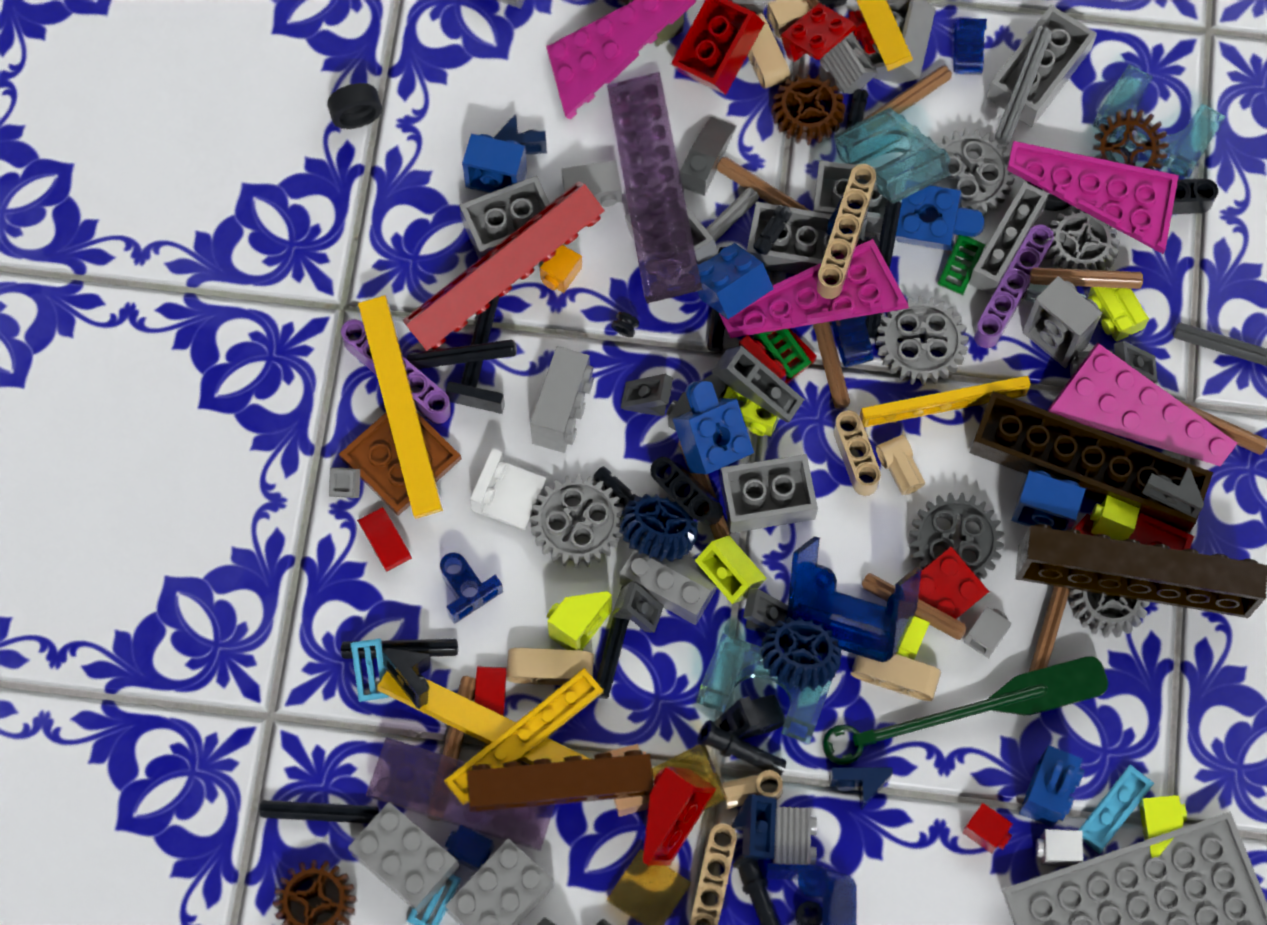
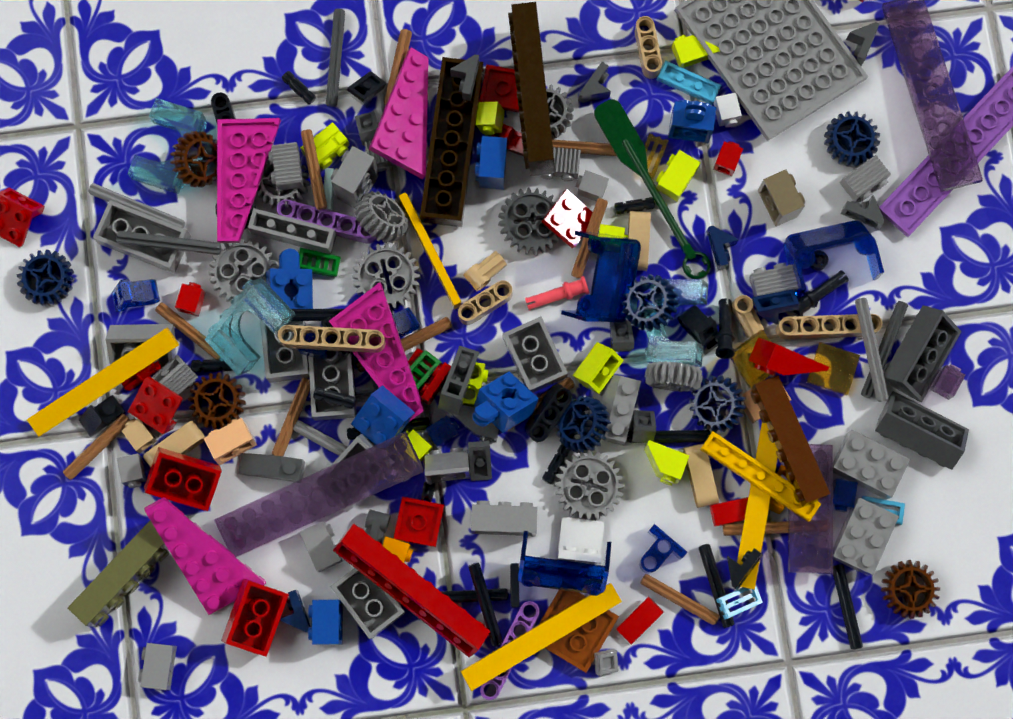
camera: 105 degrees left, 10 degrees up
(395, 597) = (679, 599): none -> medium nougat axle
(472, 442) = (563, 574): none -> clear blue windscreen
(526, 88) = (254, 617): none -> red brick
(590, 305) = (418, 521): none -> red plate
(598, 254) = (377, 524): none -> dark grey piece
(621, 712) = (720, 411): none -> dark blue gear
(650, 343) = (447, 466): none -> light grey slope
(687, 322) = (420, 445): none -> neon yellow brick
(691, 661) = (673, 376): none -> light grey gear
(697, 358) = (443, 431): none -> clear blue brick
(752, 111) = (230, 441): none -> light nougat brick
(847, 560) = (567, 291): none -> coral pin
(911, 880) = (781, 197): none -> dark tan brick
(947, 106) = (190, 299): none -> red brick
(948, 682) = (634, 205): none -> black axle
(978, 751) = (678, 175): none -> neon yellow brick
(1002, 328) = (381, 217): none -> light grey gear
(1028, 604) = (566, 164): none -> light grey brick
(1028, 721) = (657, 140): none -> clear yellow tile
(1084, 73) = (106, 194): none -> light grey axle
(1097, 244) = (287, 166): none -> light grey brick
(1131, 668) = (593, 89): none -> dark grey slope
(1189, 372) = (366, 88): none -> black slope
(1190, 755) = (648, 38): none -> tan beam
(1209, 295) = (298, 87): none -> black axle

